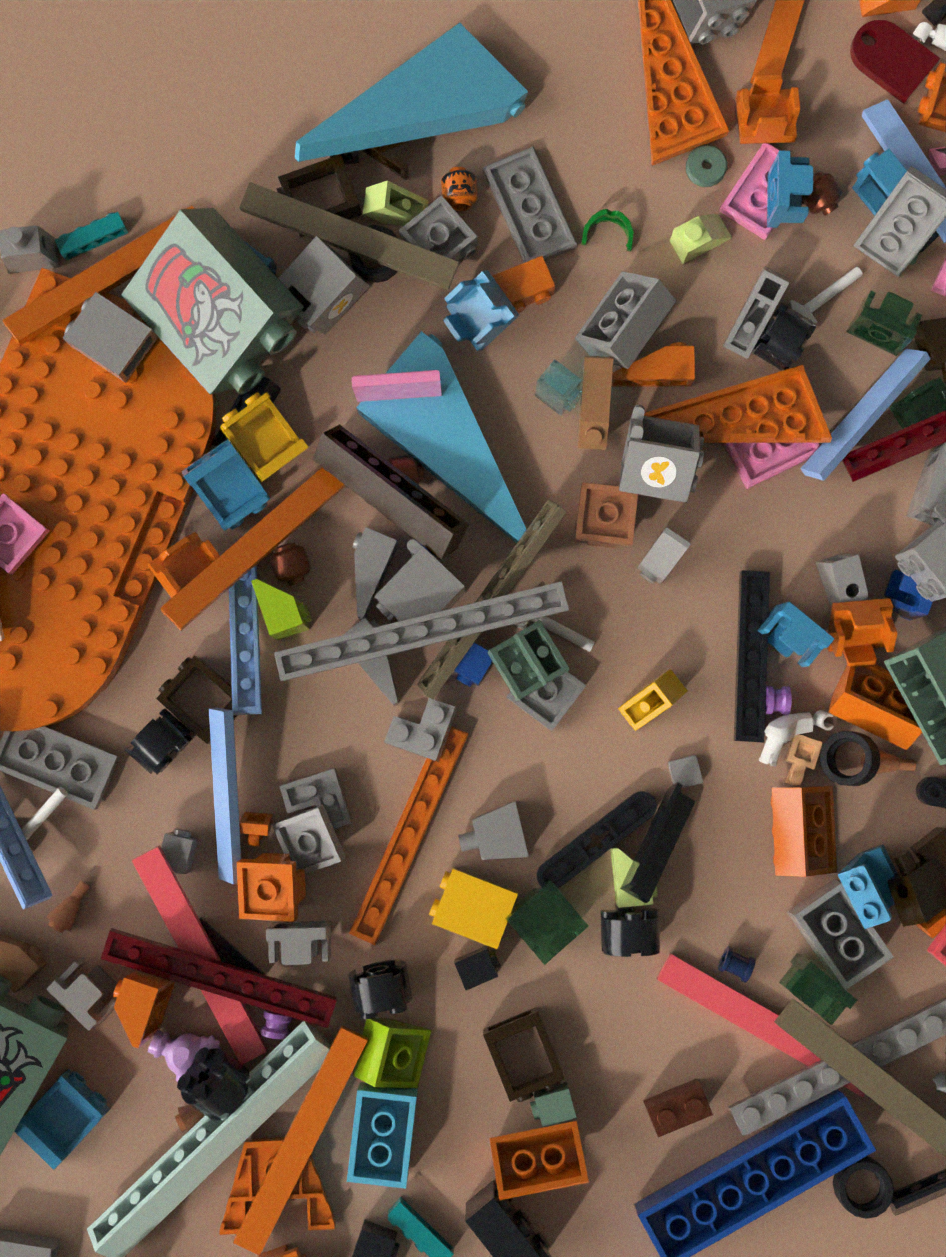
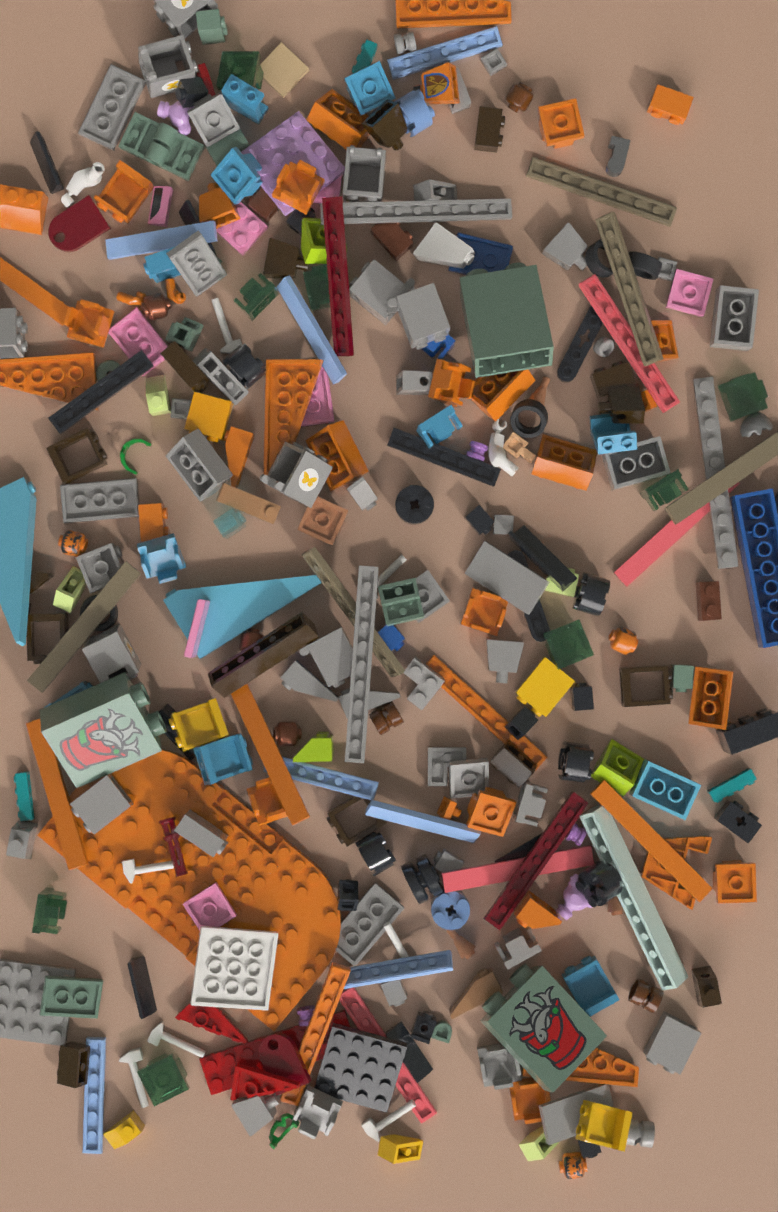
camera: 75 degrees left, 5 degrees up
(30, 408) = (131, 869): none -> white piece
(72, 1209) = (639, 993): none -> reddish brown wheel
(88, 722) = (347, 895): none -> black brick
(95, 447) = (179, 869): none -> dark red pin
(96, 876) = (455, 918): none -> medium blue brick
(109, 486) = (202, 833): none -> light grey brick
(142, 821) = (421, 879): none -> black wheel
(349, 899) = (513, 764): none -> dark brown brick
(356, 695) = (386, 718): none -> reddish brown wheel
(411, 891) = (521, 723): none -> black brick
(553, 786) = (484, 612): none -> orange panel
(558, 138) = (59, 463): none -> dark brown window
(578, 1000) = (623, 640): none -> orange head
(612, 802) = (507, 577): none -> light grey tile
(653, 699) = (451, 530): yellow slope -> none
(679, 156) = (101, 392): none -> black plate
(680, 736) = (480, 520): none -> black brick
(685, 628) = (425, 502): none -> black brick
(692, 274) = (180, 408): none -> light grey tile
(697, 314) = (209, 416): none -> light orange piece
(715, 504) = (340, 450): none -> orange slope
(736, 964) = (633, 533): dark blue bush -> none
(753, 257) = (185, 367): none -> dark brown window
(786, 184) = (148, 329): dark azure panel -> none
(798, 245) = (185, 333): none -> sand green brick
(817, 150) = (129, 299): none -> orange arm
(846, 213) = (172, 293): none -> orange arm

